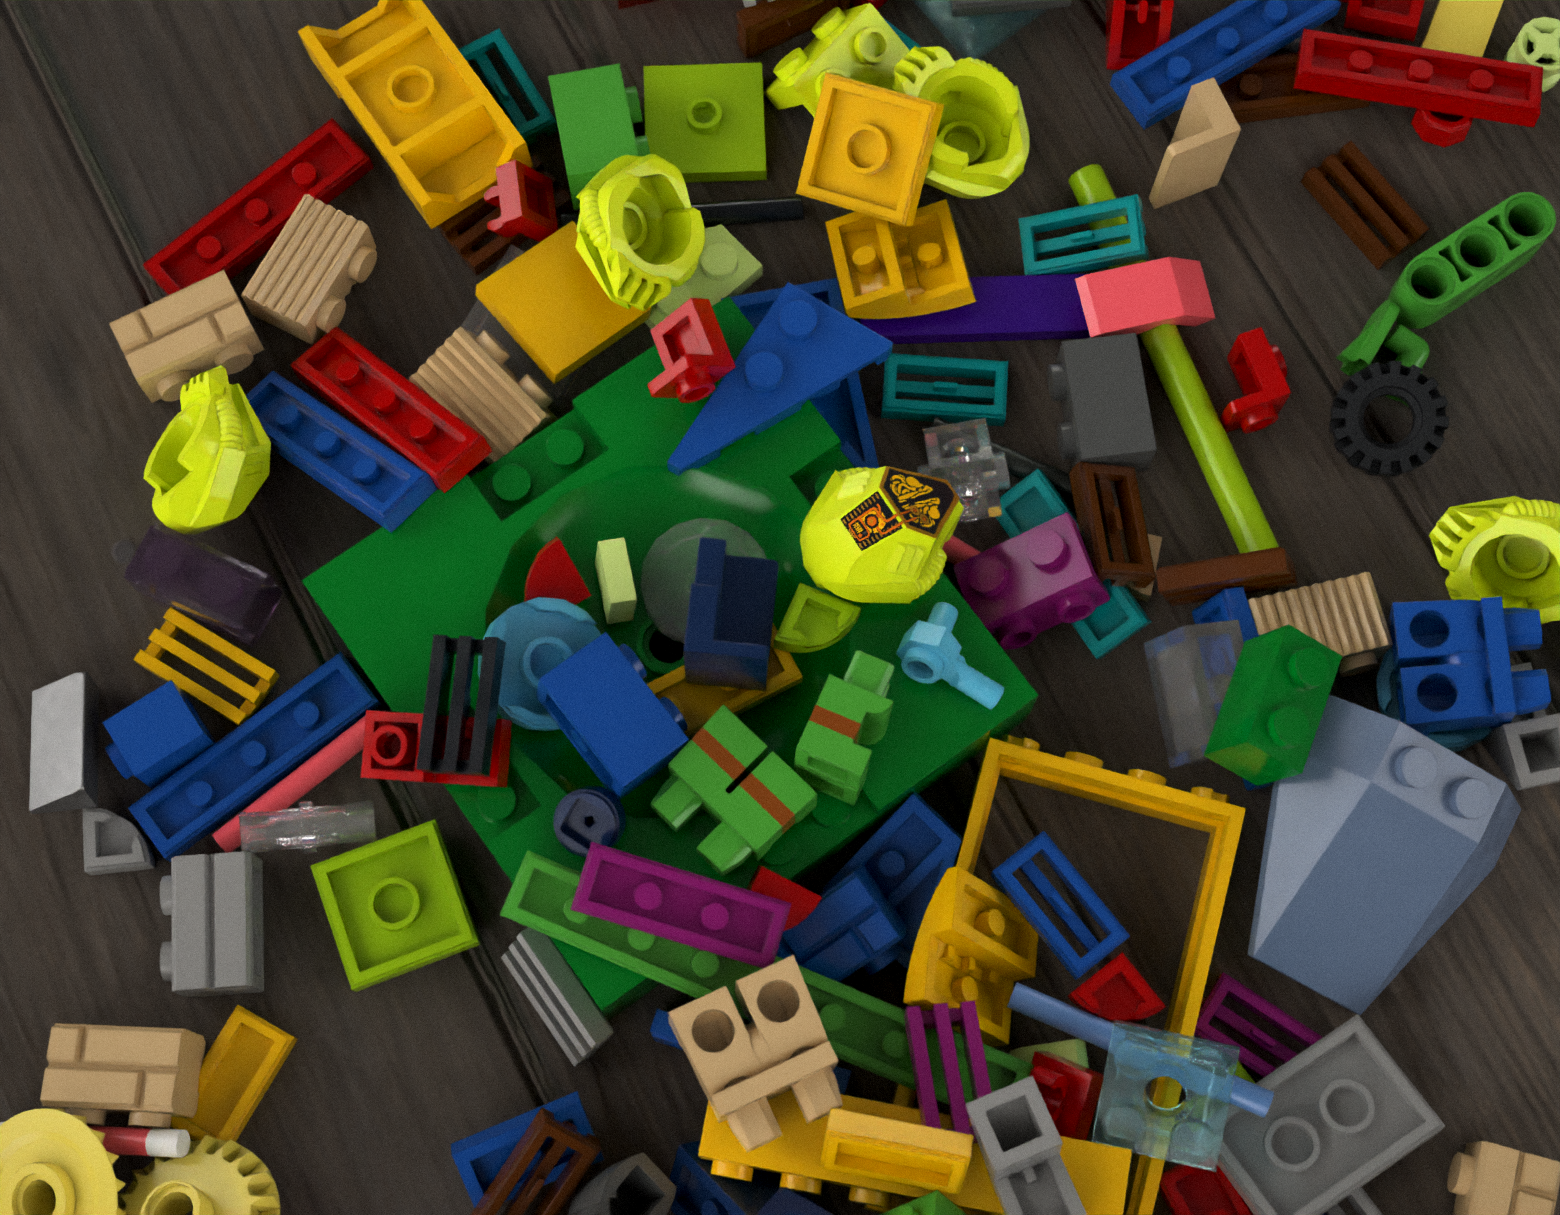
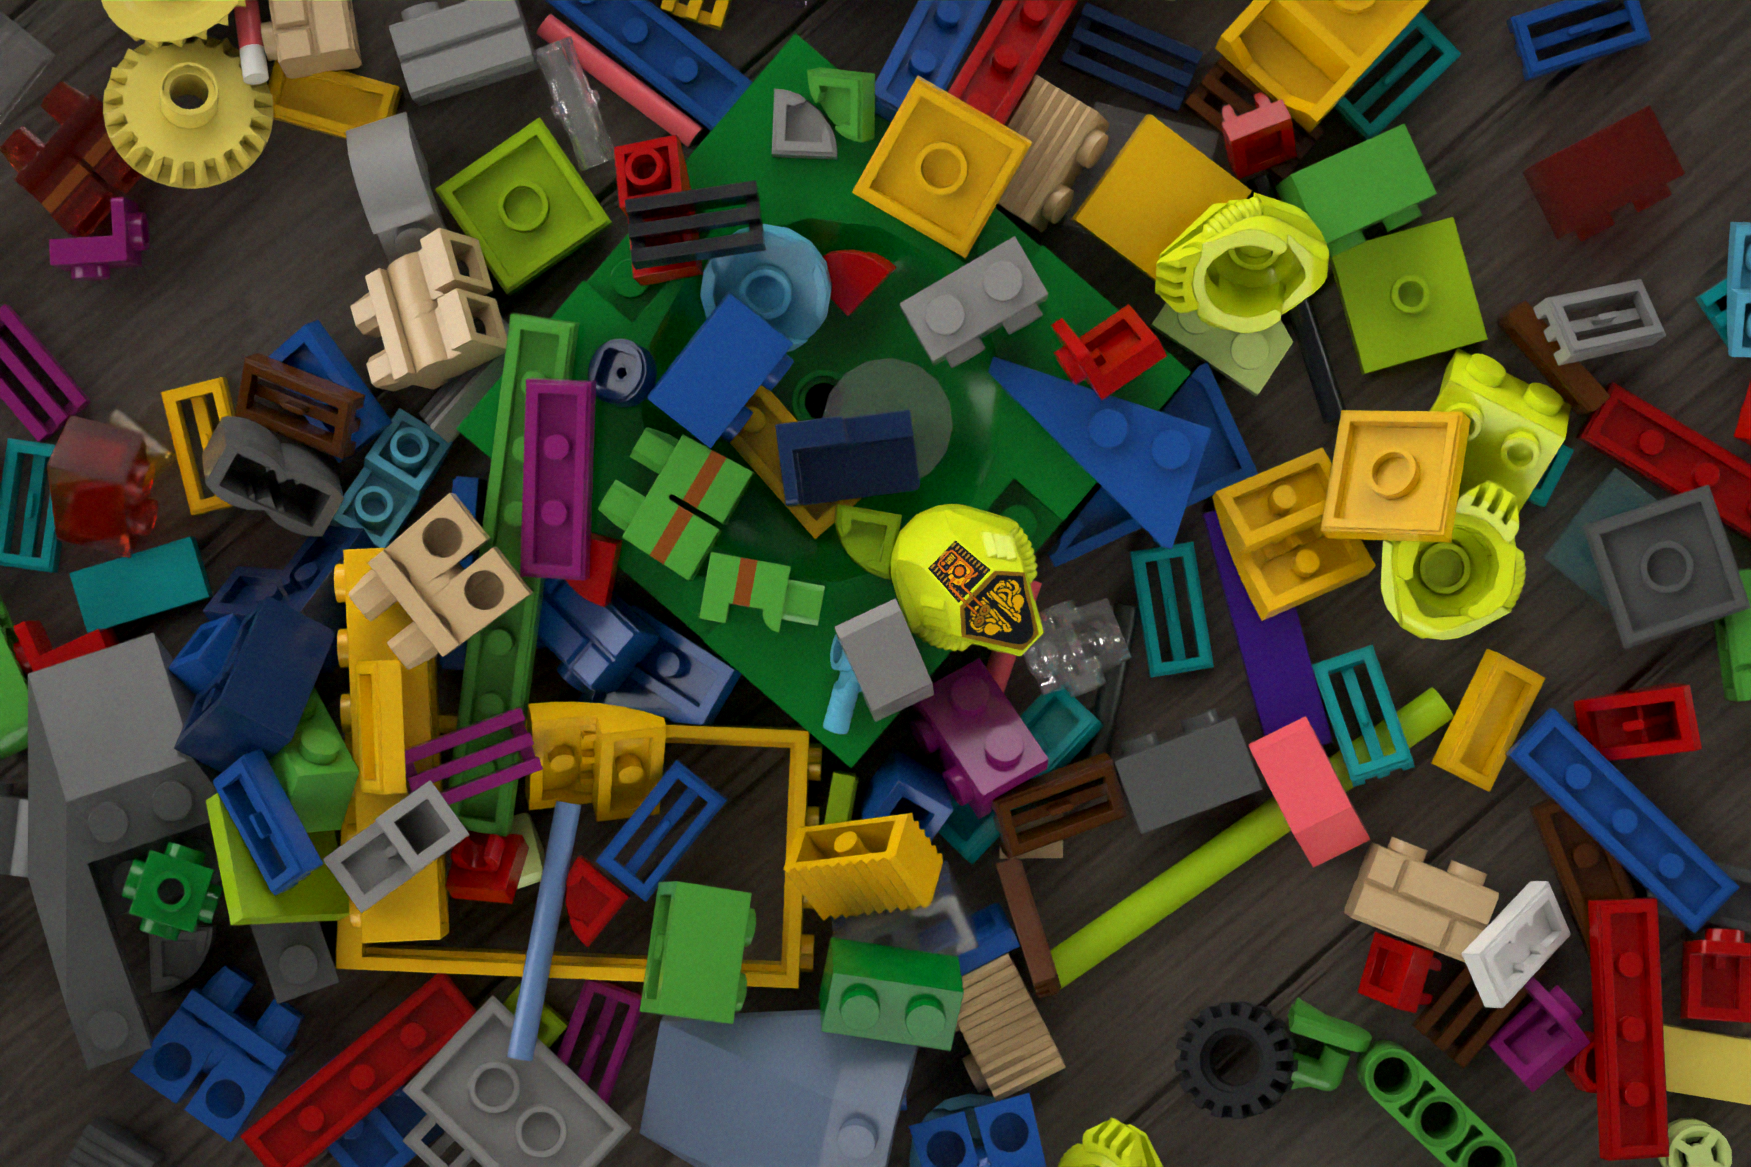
camera: 80 degrees right, 15 degrees up
(343, 1025) = (393, 184): none -> light grey brick
(380, 541) = (846, 99): none -> bright green tile
(396, 594) = (800, 129): none -> light grey tile
(402, 292) = (1143, 36): none -> dark blue tile
(470, 465) = (941, 166): none -> yellow tile
(478, 1019) = (429, 313): none -> tan hips
(610, 461) = (974, 302): none -> light grey brick
(615, 580) = (864, 336): yellowish green tile -> none
(633, 1105) = (392, 479): none -> medium azure slope
(941, 618) = (885, 660): none -> light grey slope
(1067, 730) = (841, 797): none -> lime tile
(1081, 664) = (907, 787): none -> blue brick
(1108, 137) = (1488, 720): none -> yellow tile
(1138, 706) = (864, 866): none -> yellow brick
(1181, 1134) = (473, 941): clear light blue piece -> none
(1194, 889) = (698, 952): none -> bright green brick
(1198, 146) = (1492, 820): tan panel -> none
(1261, 377) = (1258, 924): red bracket -> none
(1266, 228) = (1420, 900): none -> tan brick
(1324, 150) = (1516, 944): none -> white plate
(1329, 264) = (1397, 972): none -> red tile
(1410, 154) = (1540, 1036): none -> magenta bracket

